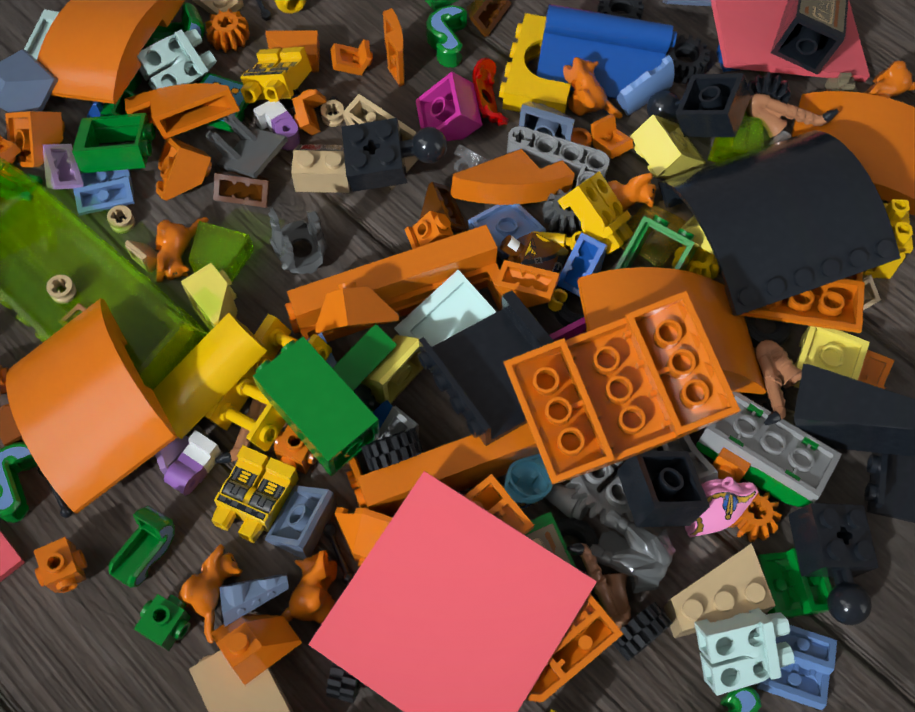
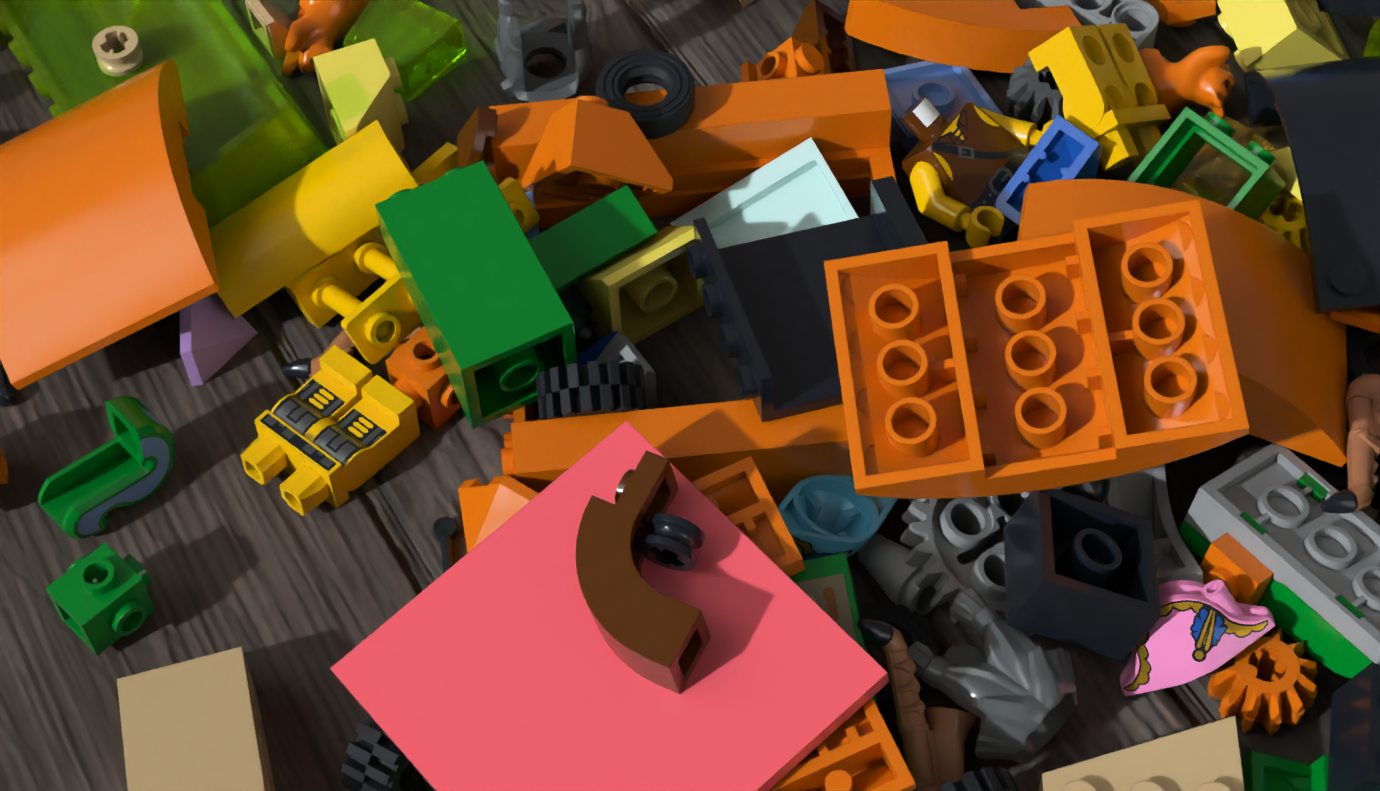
camera: 20 degrees right, 10 degrees down
(192, 464) = (242, 364): leg -> none
(203, 589) = (188, 563): orange animal -> none
(247, 595) = (256, 585): sand blue slope -> none
(255, 643) = (243, 658): orange slope -> none
(284, 315) = (473, 135): none -> reddish brown tile
(302, 520) = (403, 500): sand blue slope -> none
(310, 598) = (391, 585): orange animal -> none
(372, 251) = (655, 68): none -> black tyre
(466, 588) = (640, 625): none -> reddish brown arch
(470, 538) = (671, 542): none -> black bush
(529, 283) = (932, 181): orange slope -> none

